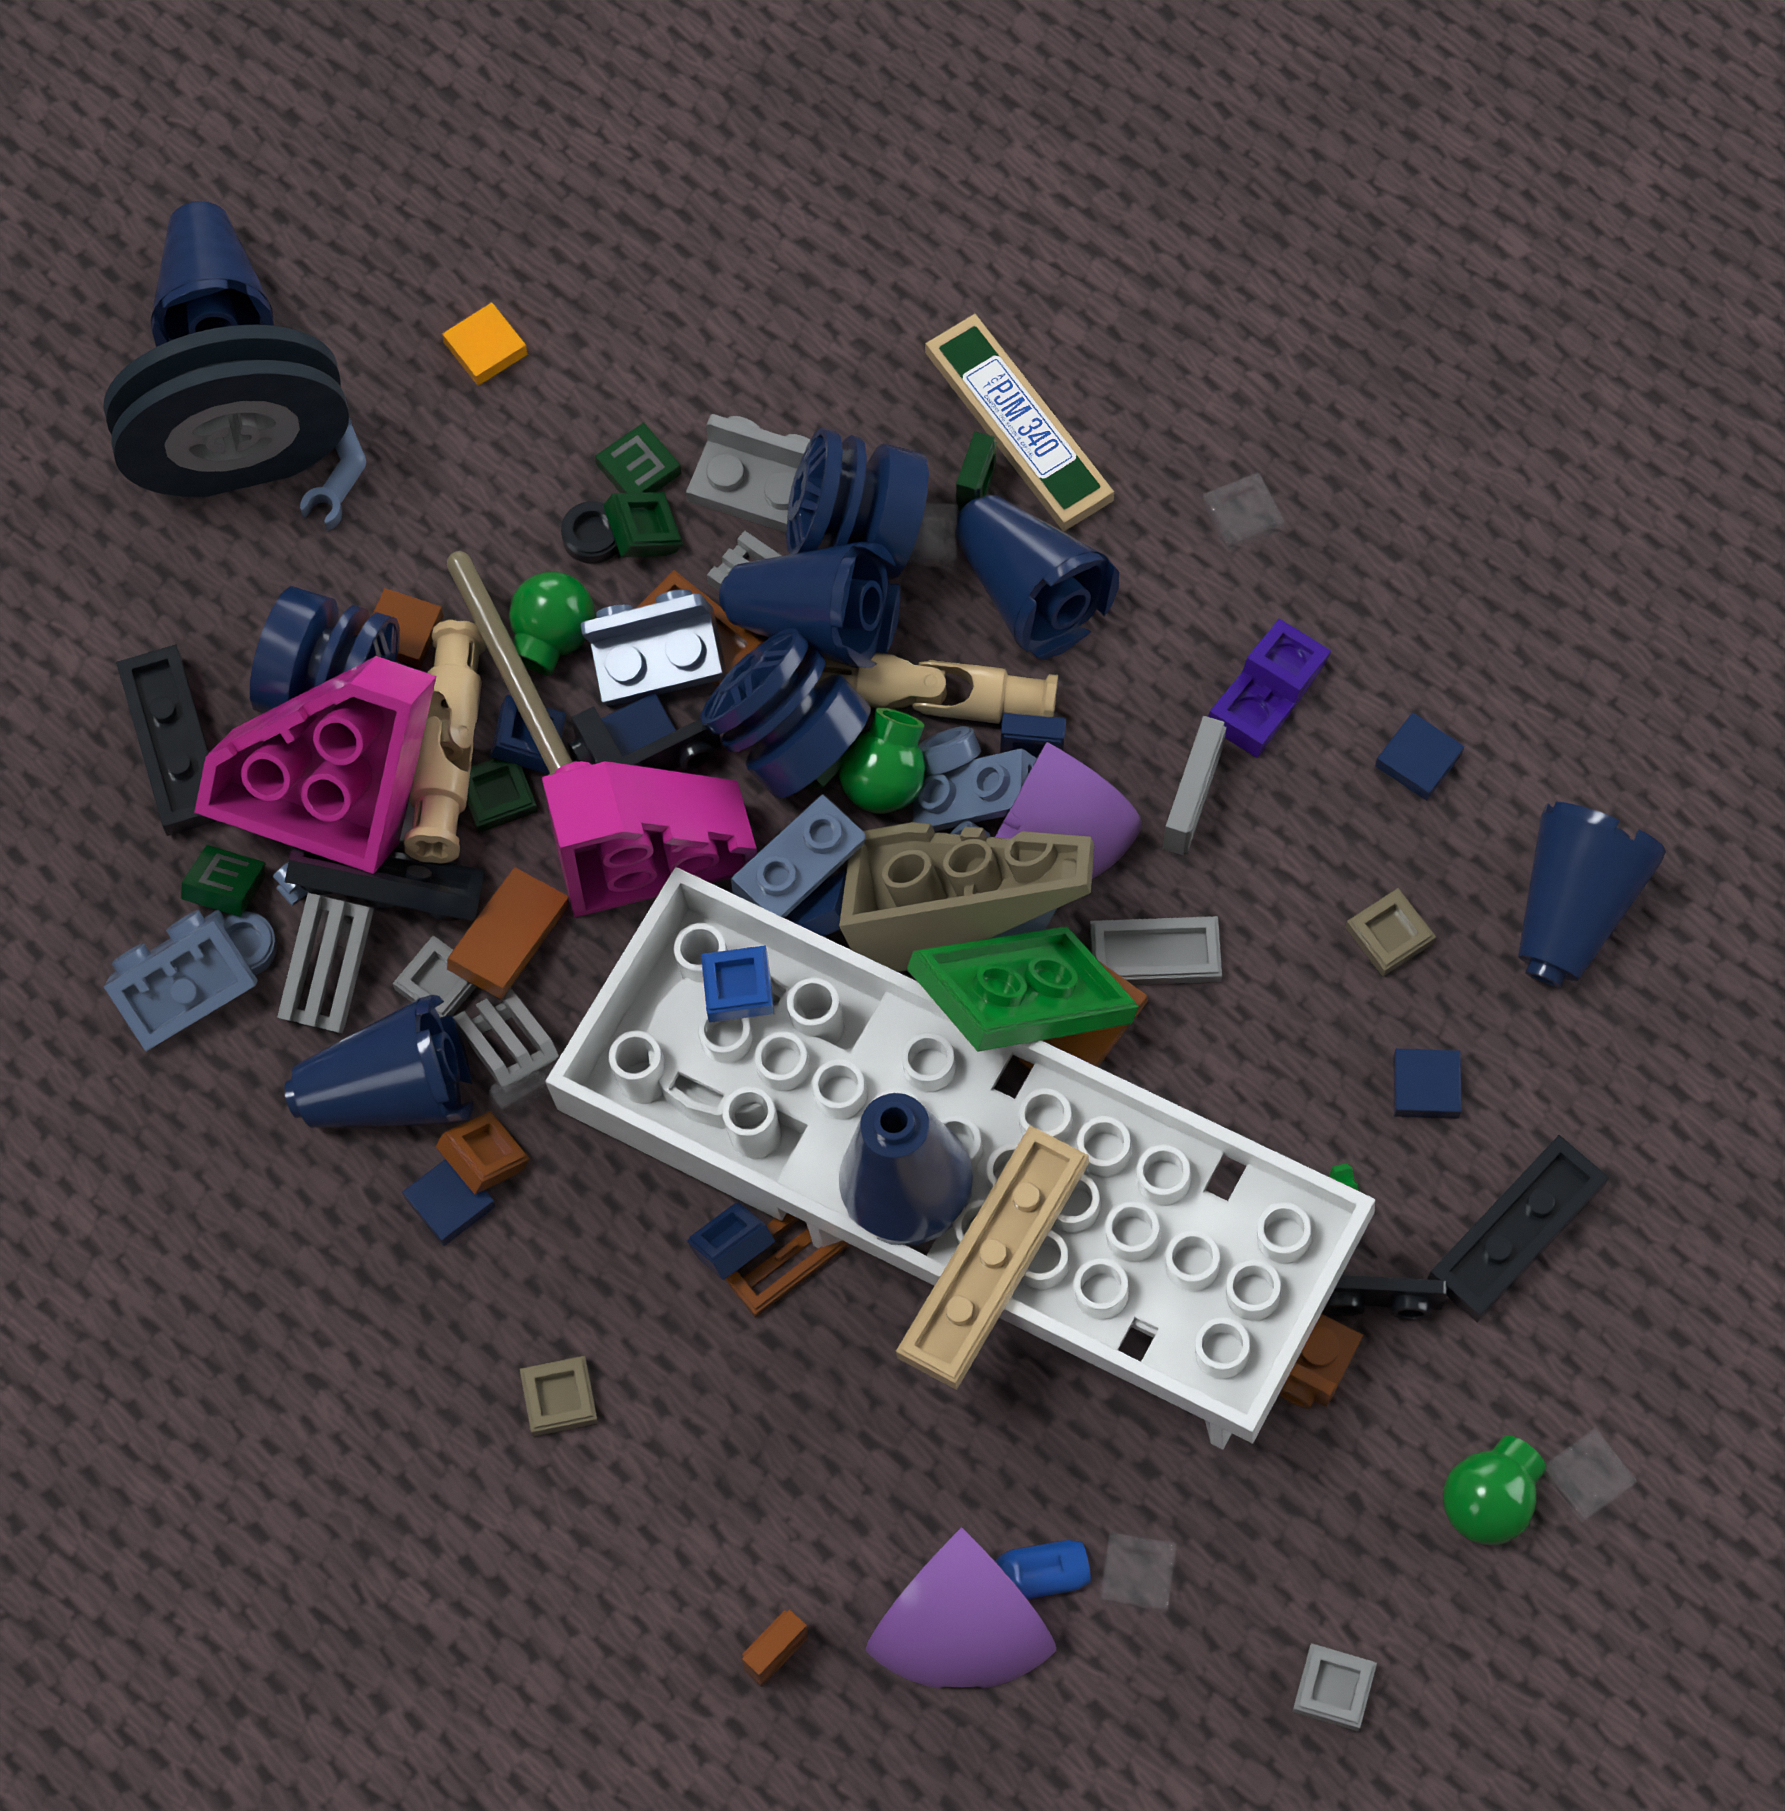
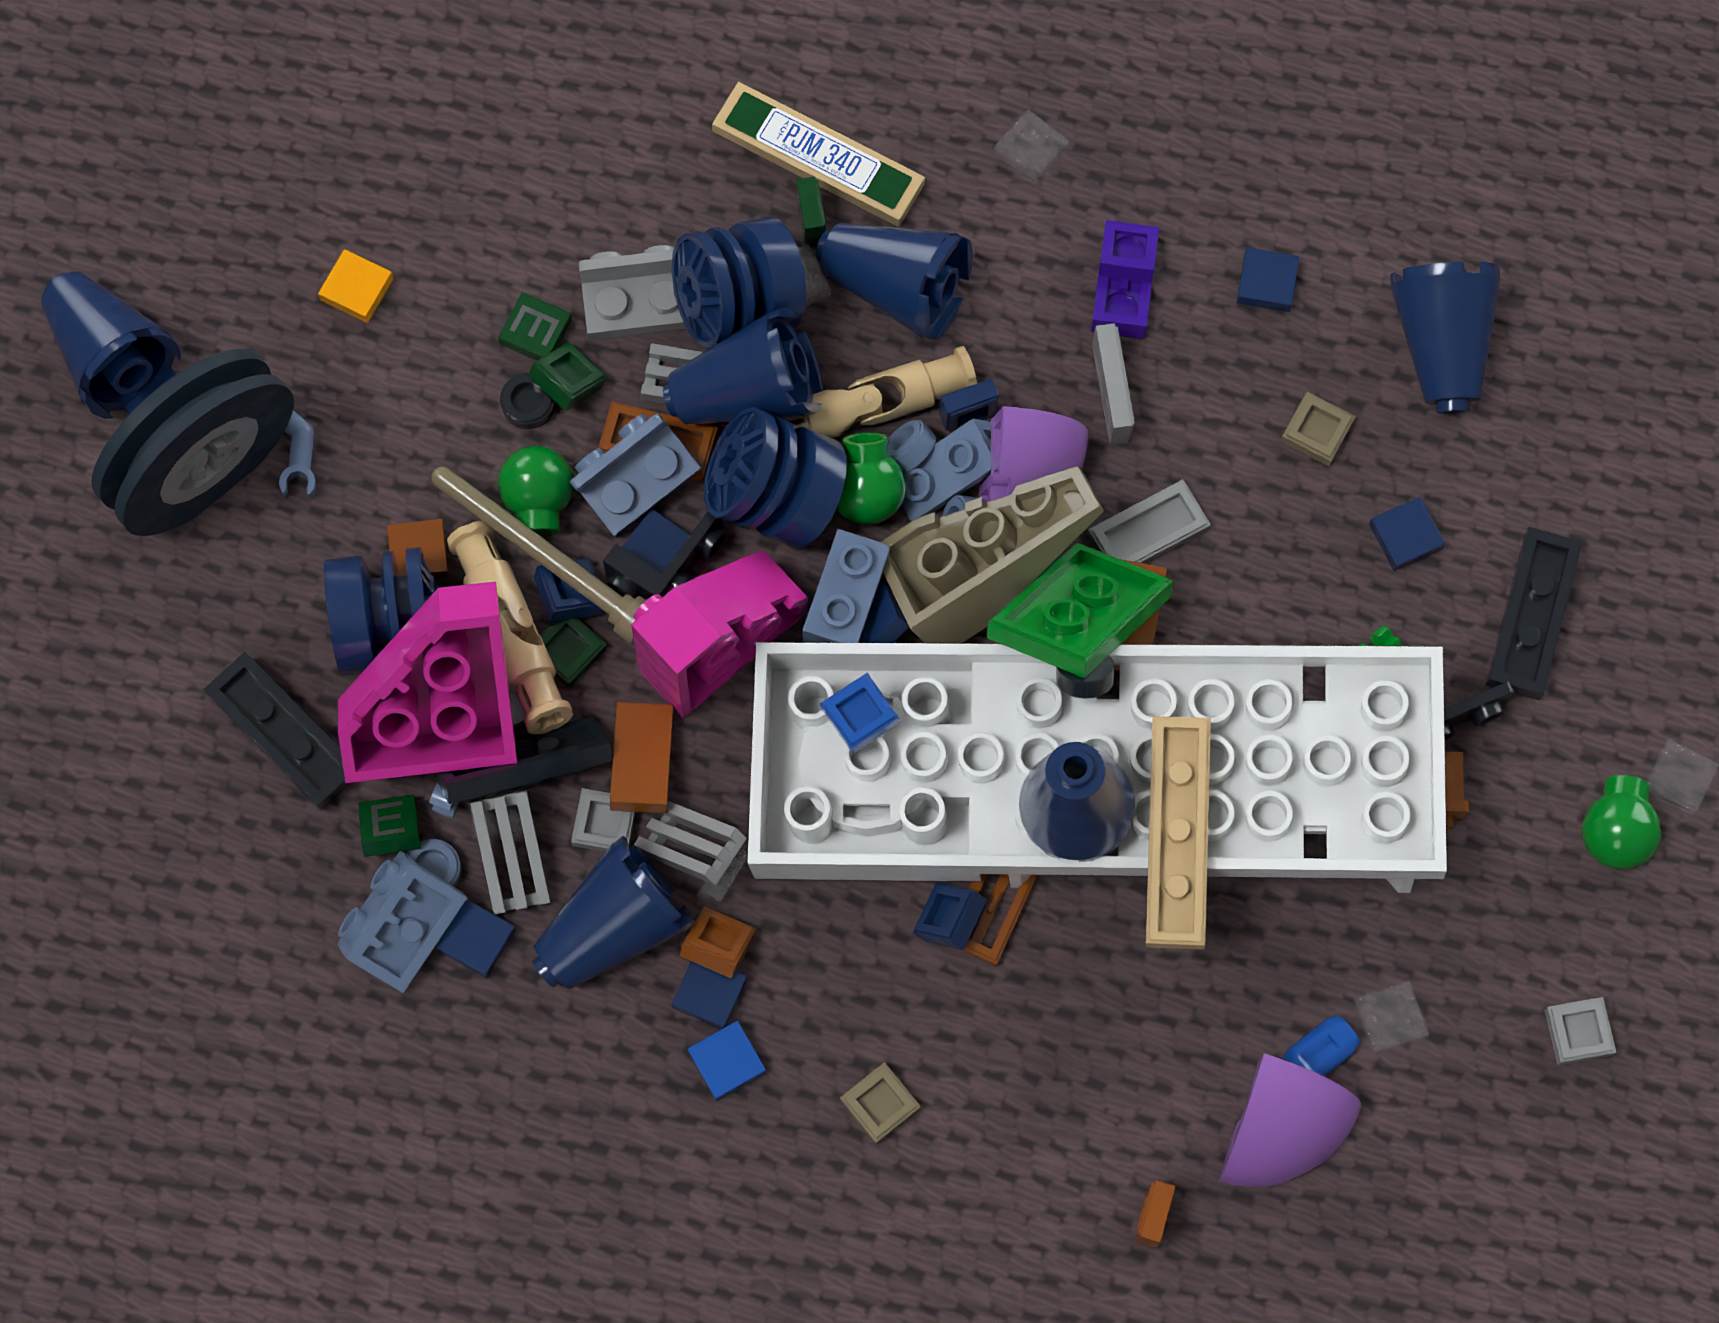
camera: 30 degrees left, 5 degrees up
(247, 1033) = (476, 938): none -> dark blue tile
(427, 1276) = (726, 1061): none -> blue tile
(985, 1064) = (1092, 686): none -> black tile

